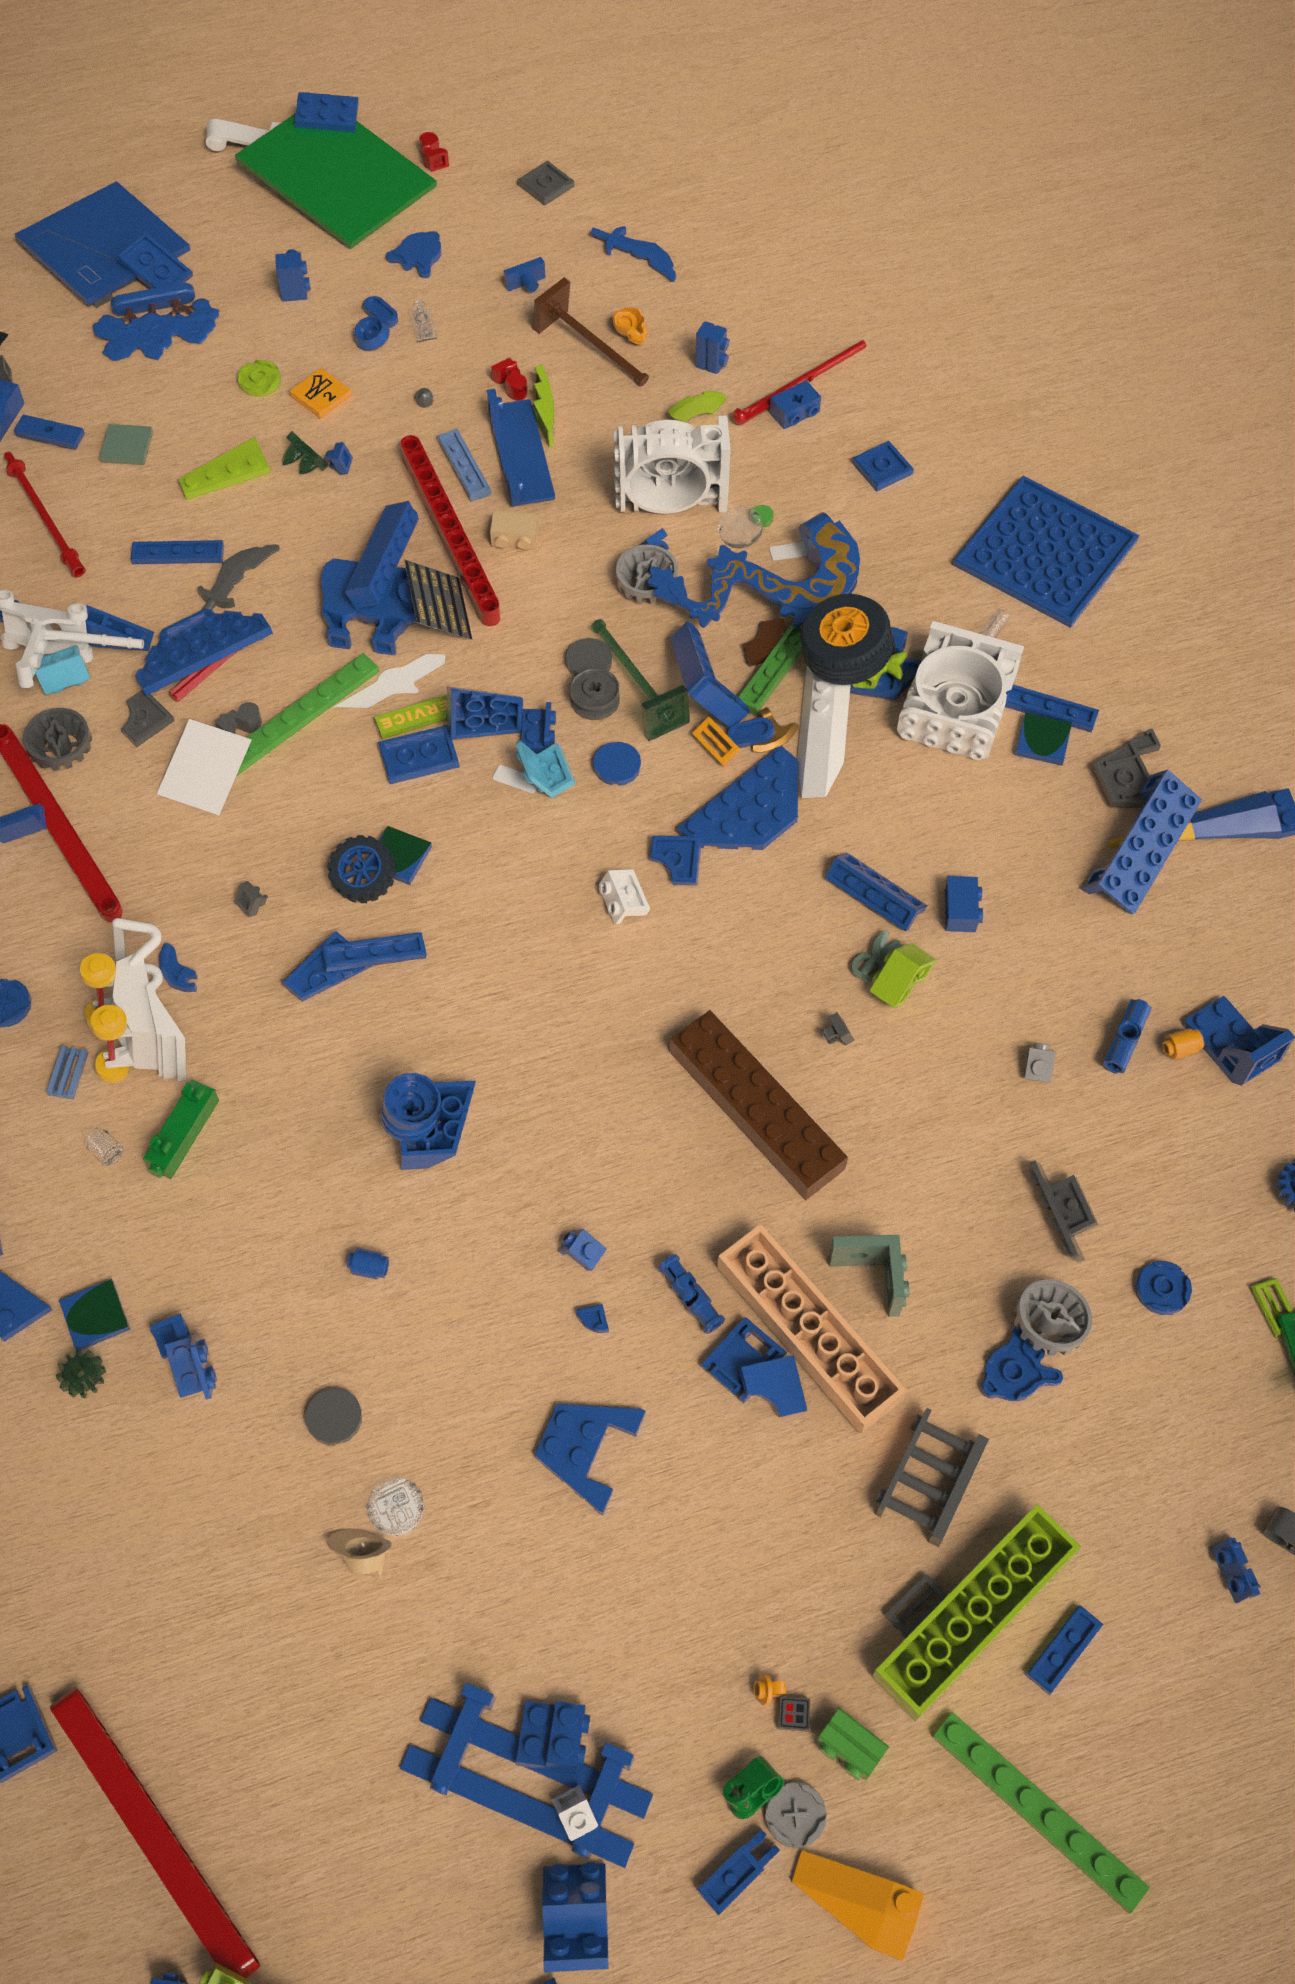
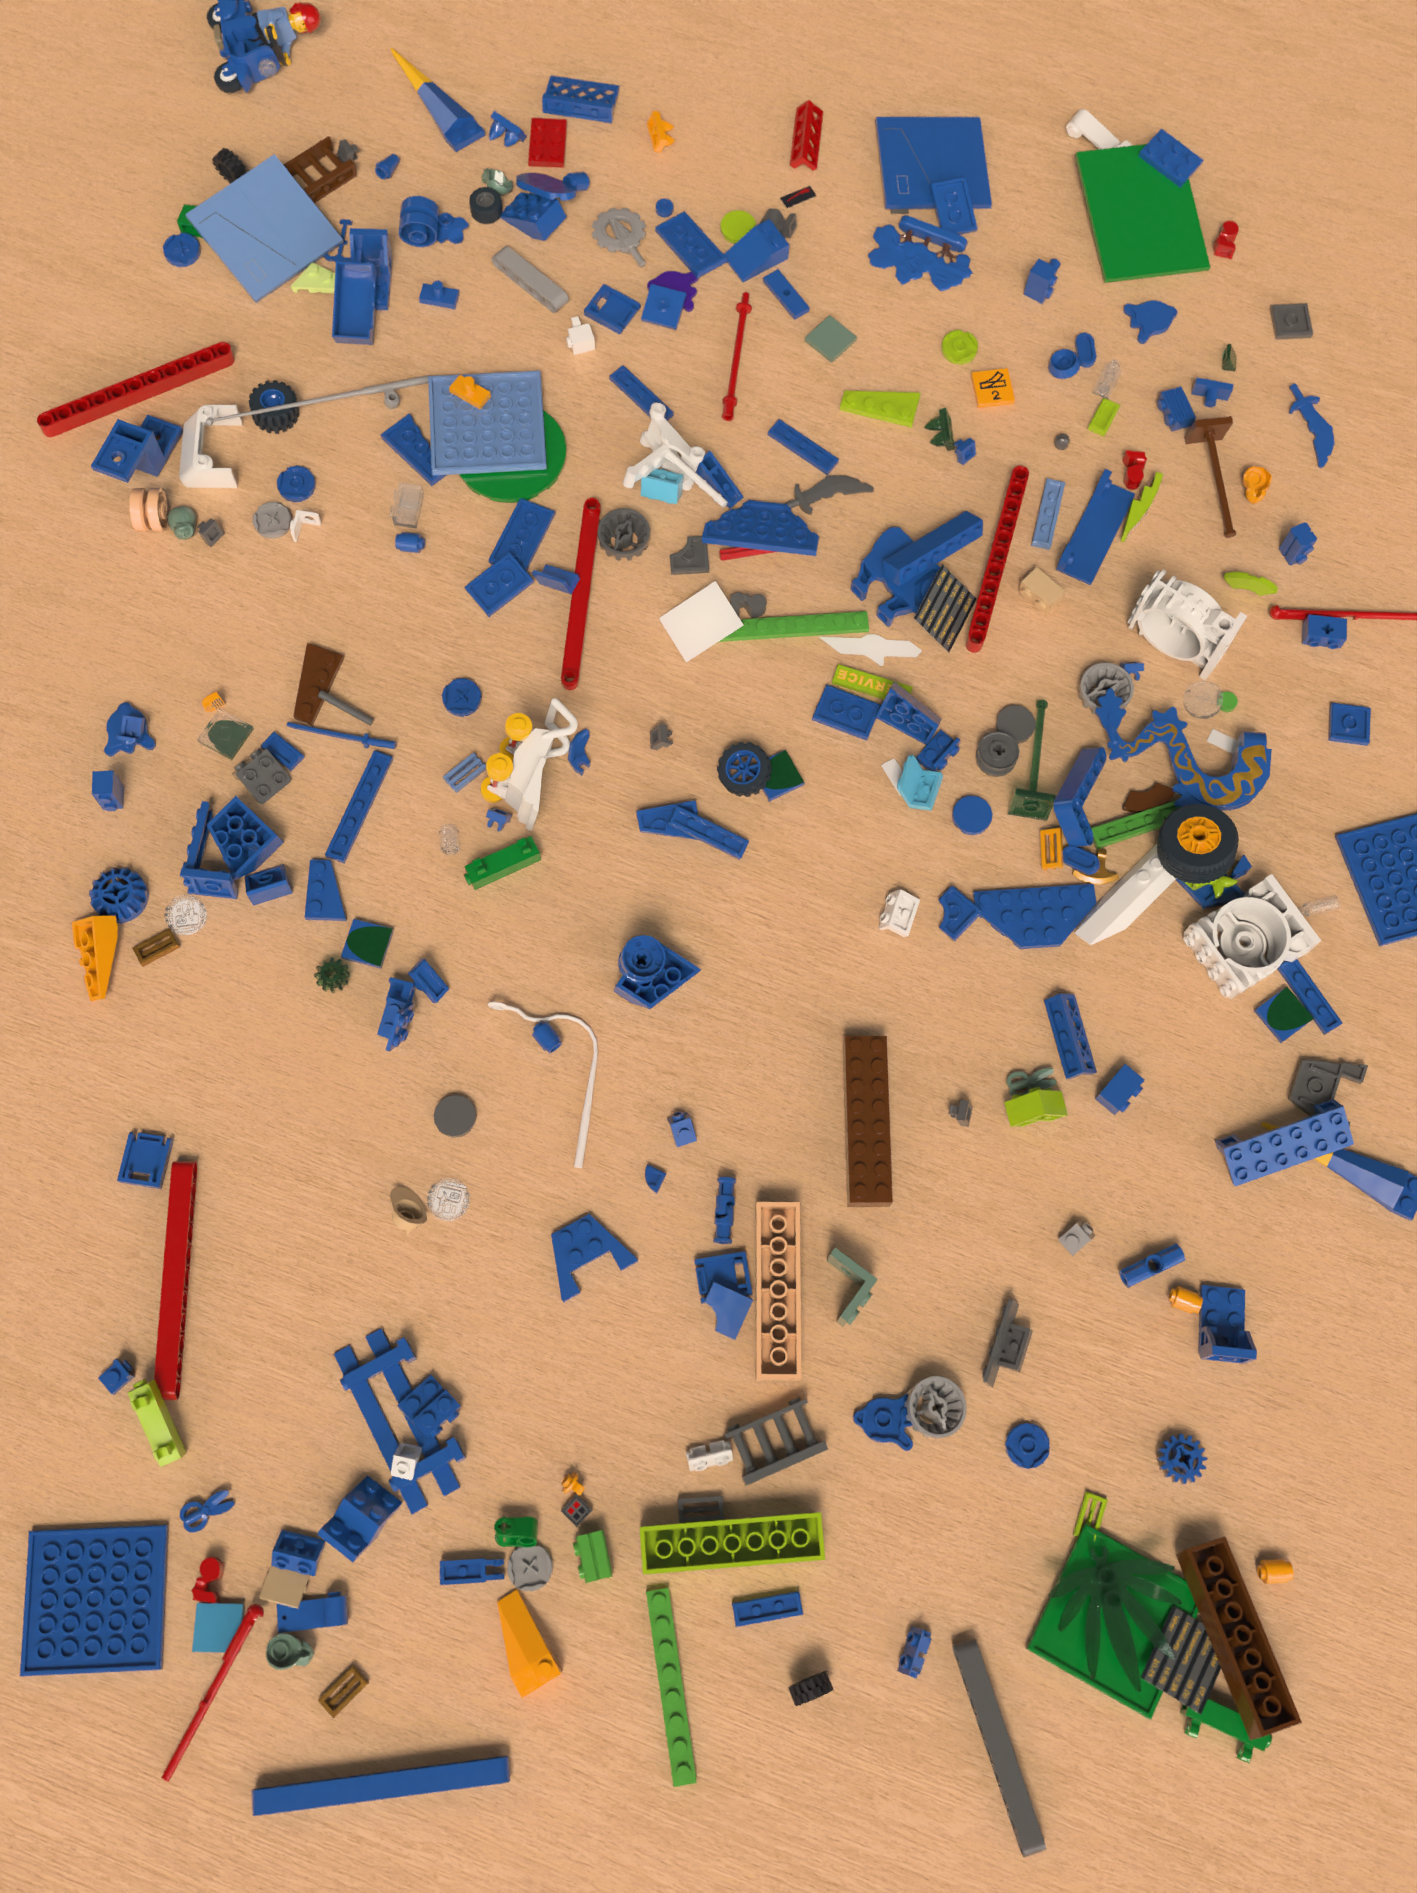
camera: 35 degrees right, 10 degrees up
(140, 1087) = (498, 816): none -> blue tile
(194, 1300) = (428, 981): none -> blue tile
(445, 355) = (1104, 417): none -> lime tile
(467, 1302) = (589, 1093): none -> white piece
(506, 308) = (1176, 409): none -> blue brick
(517, 243) = (1229, 359): none -> slope
(874, 1556) = (719, 1455): none -> white hinge
(1176, 1688) = (810, 1688): none -> black tyre

